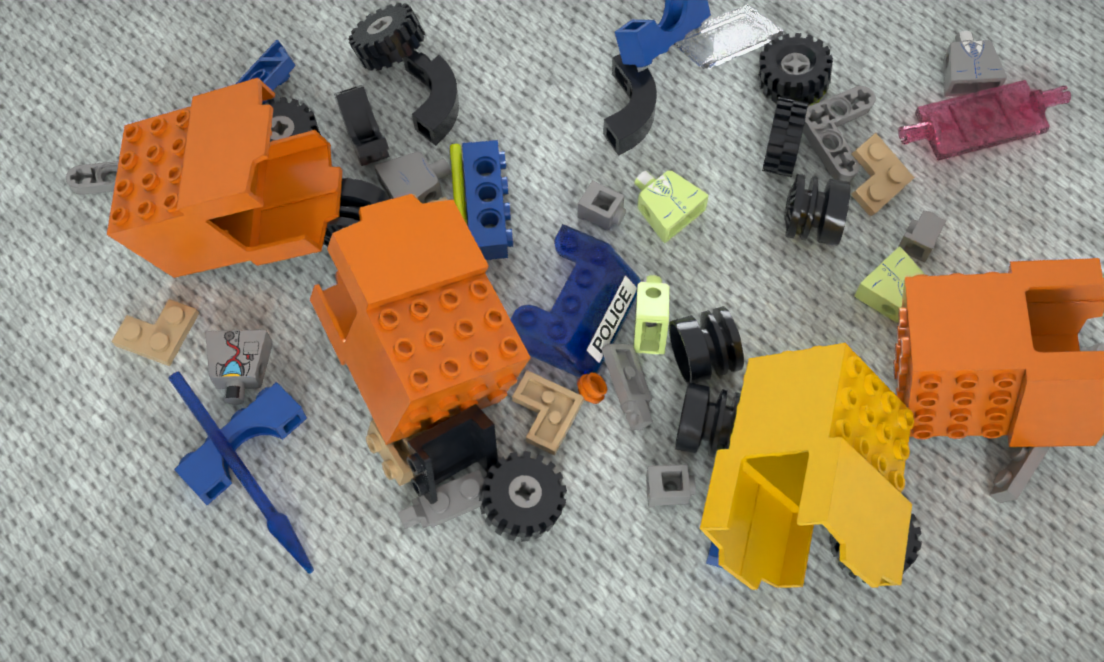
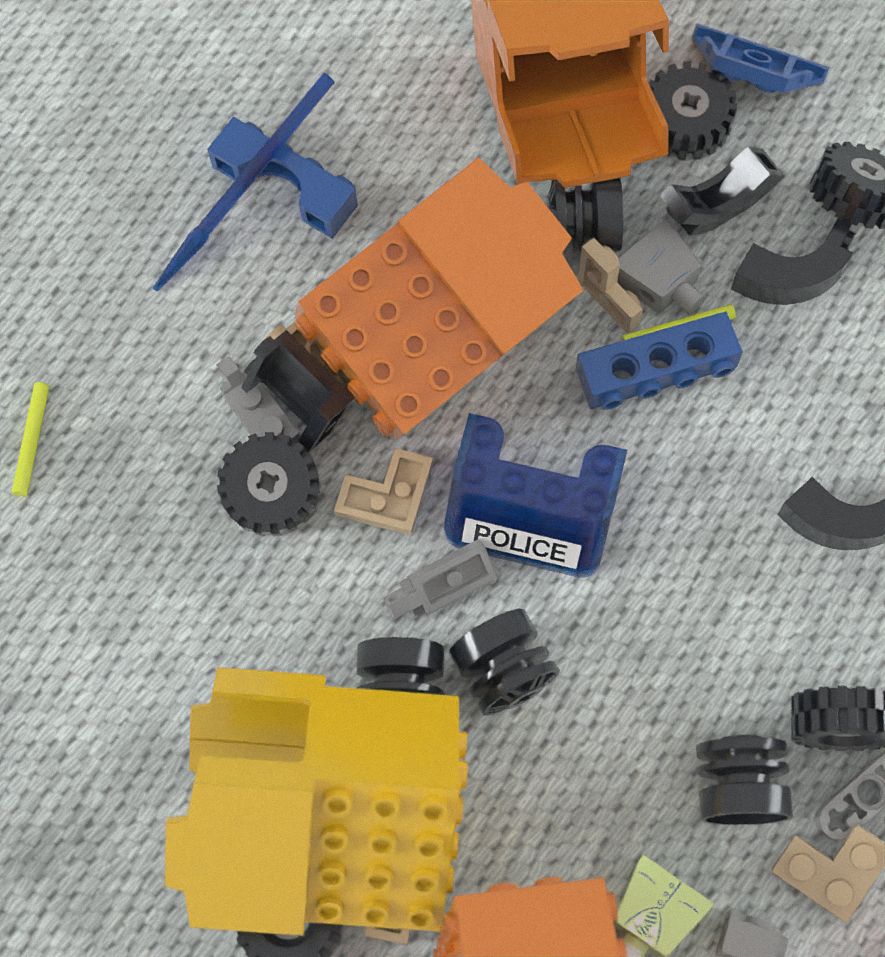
camera: 80 degrees right, 5 degrees up
(161, 340) = (395, 65): tan plate -> none
(237, 361) = (379, 145): light grey torso -> none
(592, 387) = (426, 539): orange plate -> none
(597, 200) = (686, 490): light grey brick -> none
(651, 307) = (540, 587): yellowish green torso -> none
(669, 202) = (712, 586): yellowish green torso -> none
(676, 475) = (312, 638): light grey brick -> none

